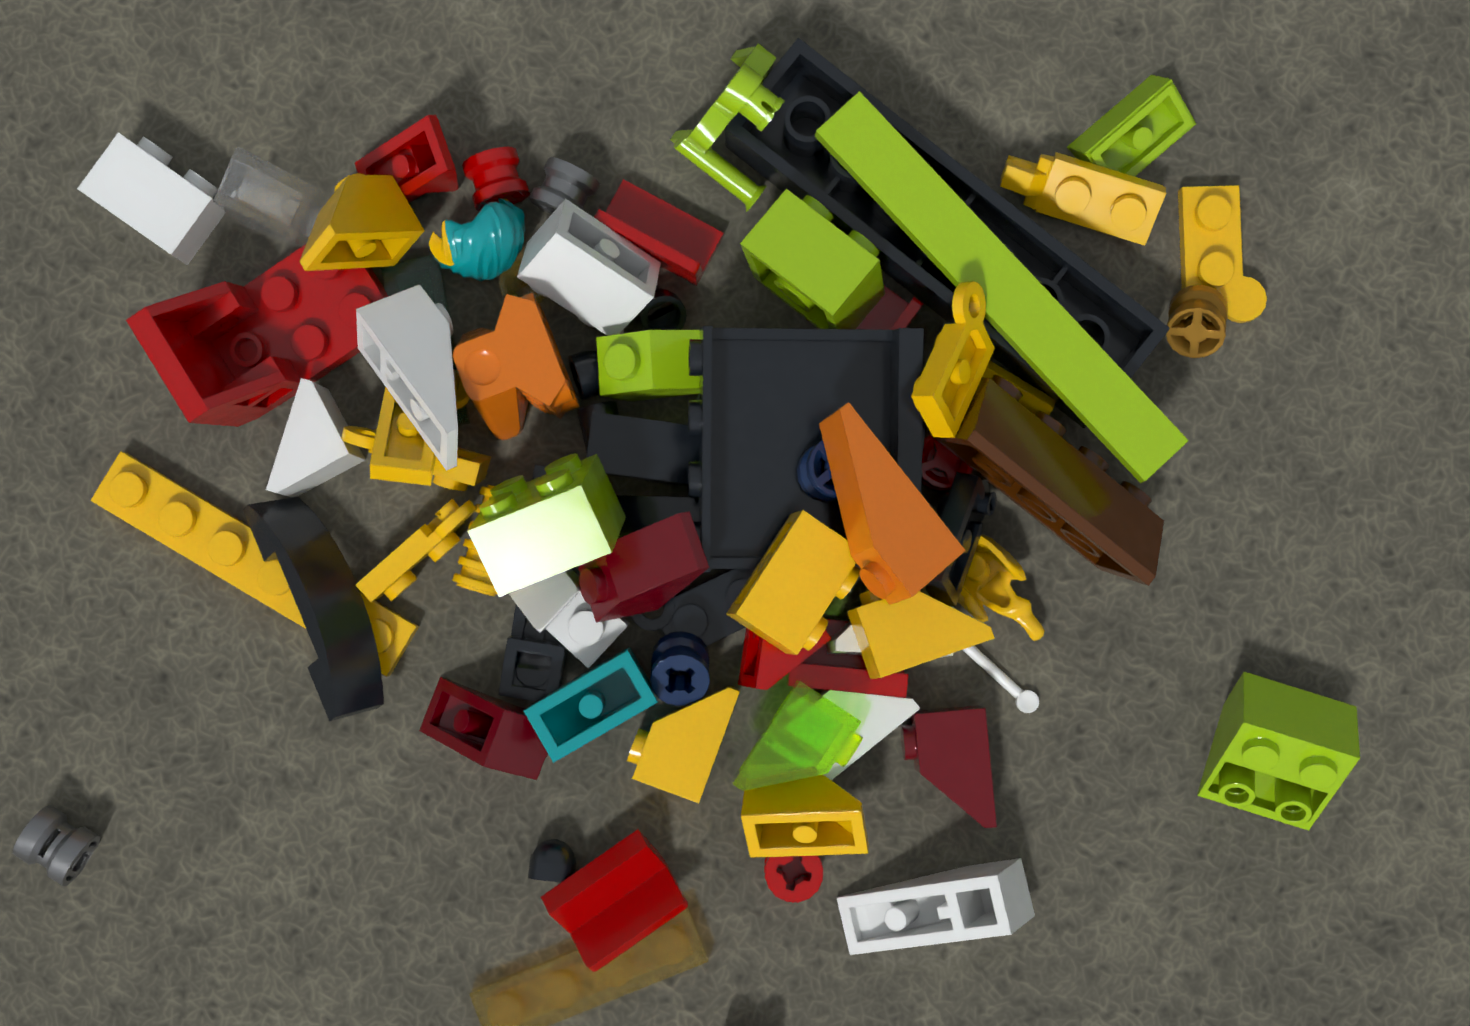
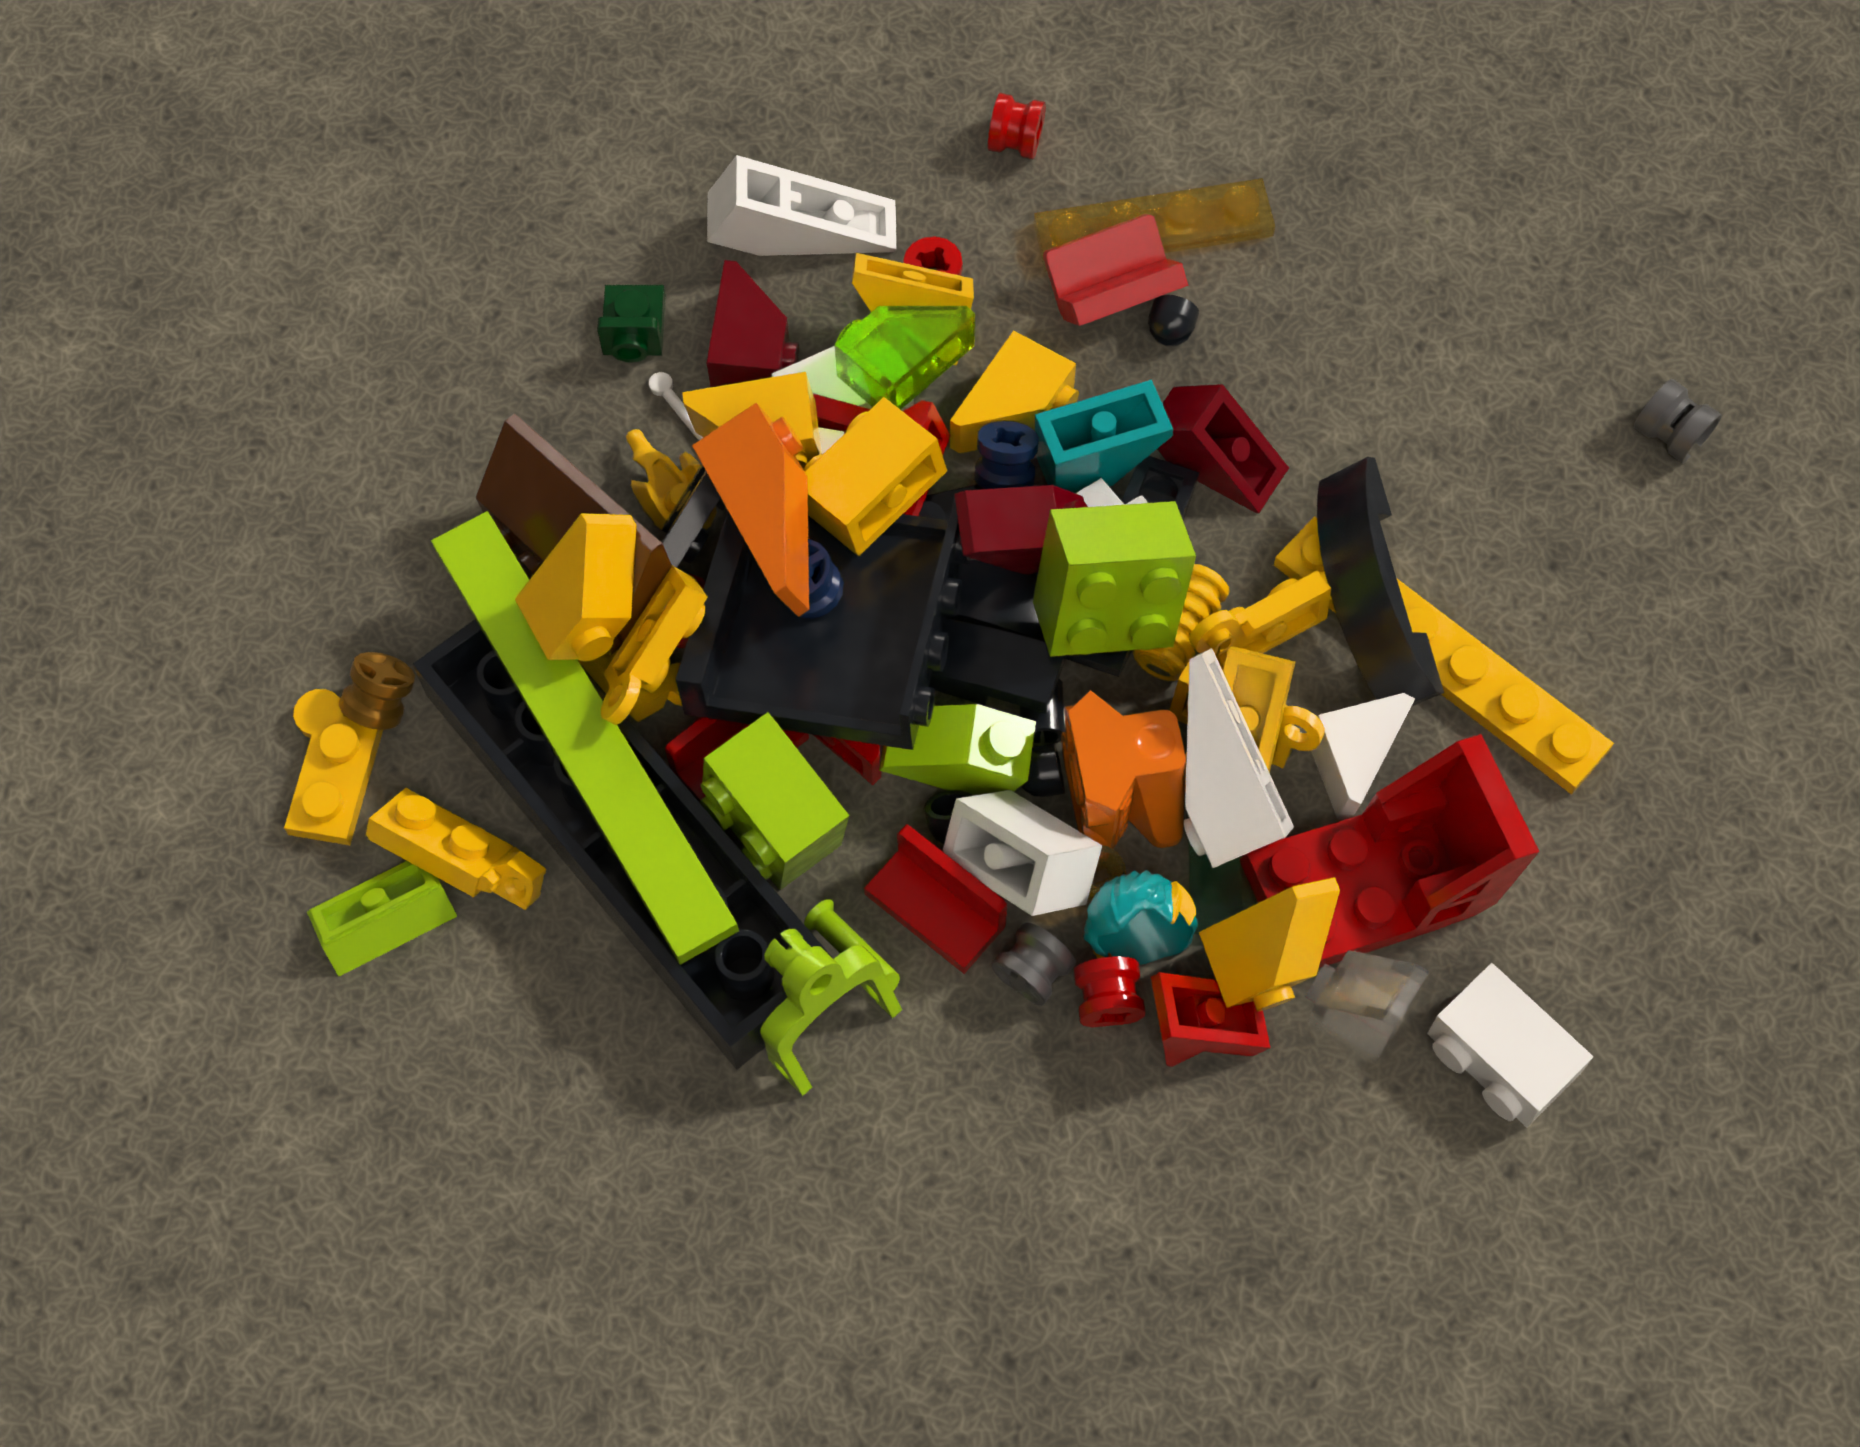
camera: 170 degrees left, 20 degrees down
(1029, 391) = (583, 588): none -> yellow slope
(1071, 760) = (632, 322): none -> dark green bracket
(1280, 751) = (424, 287): lime slope -> none

